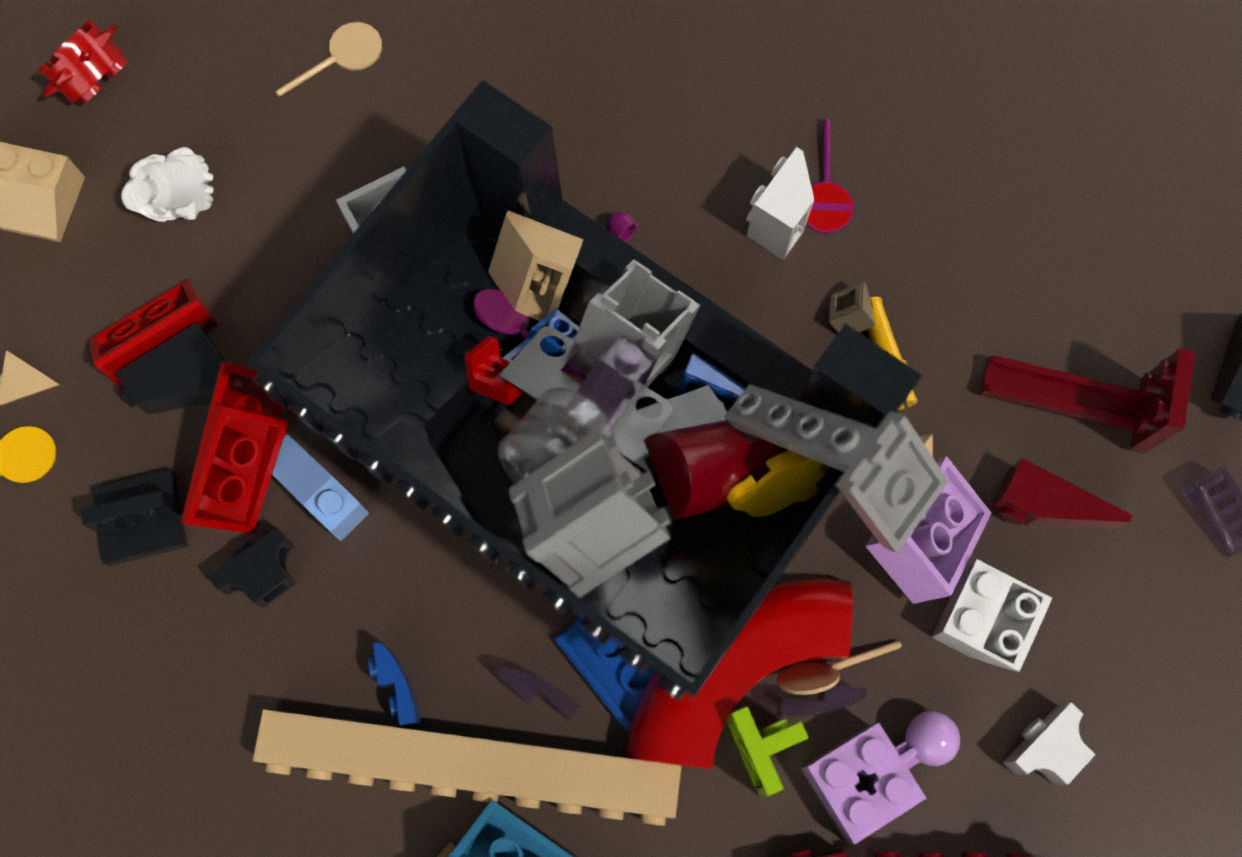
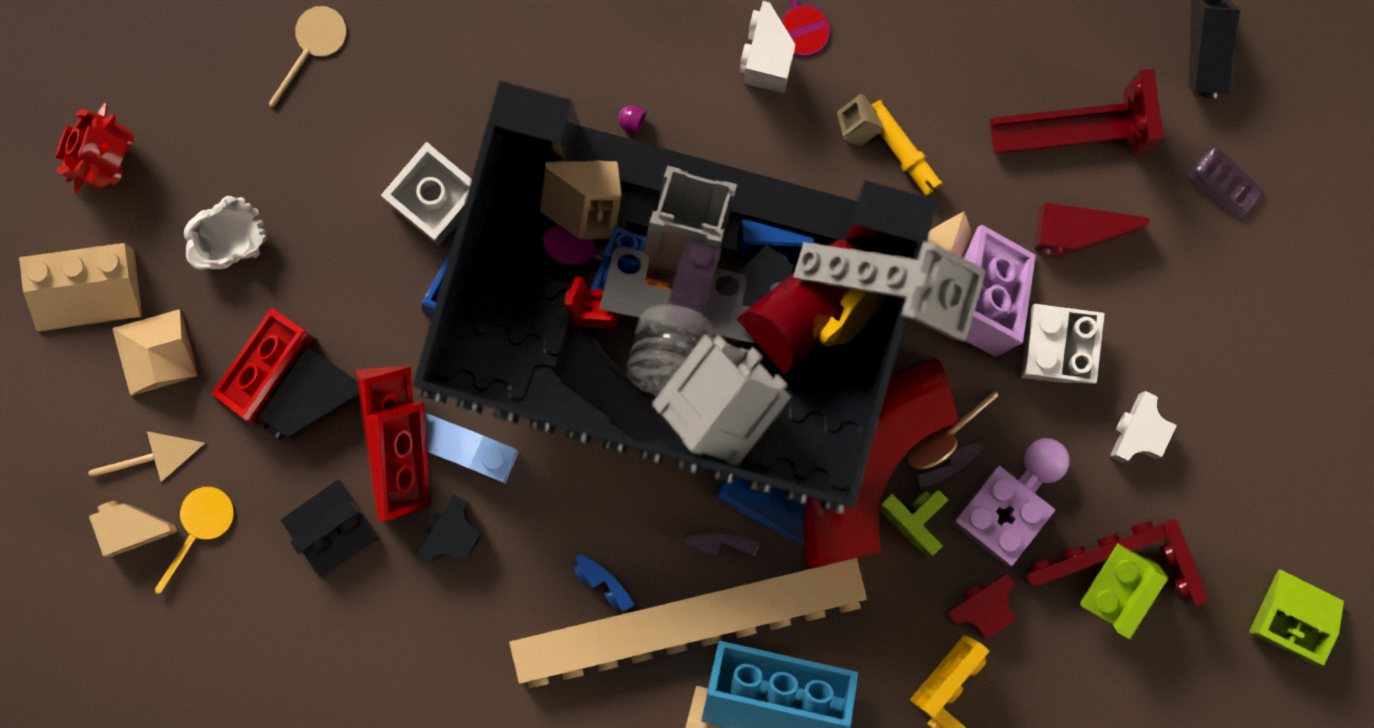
camera: 20 degrees left, 10 degrees up
(55, 279) = (155, 352): none -> tan slope

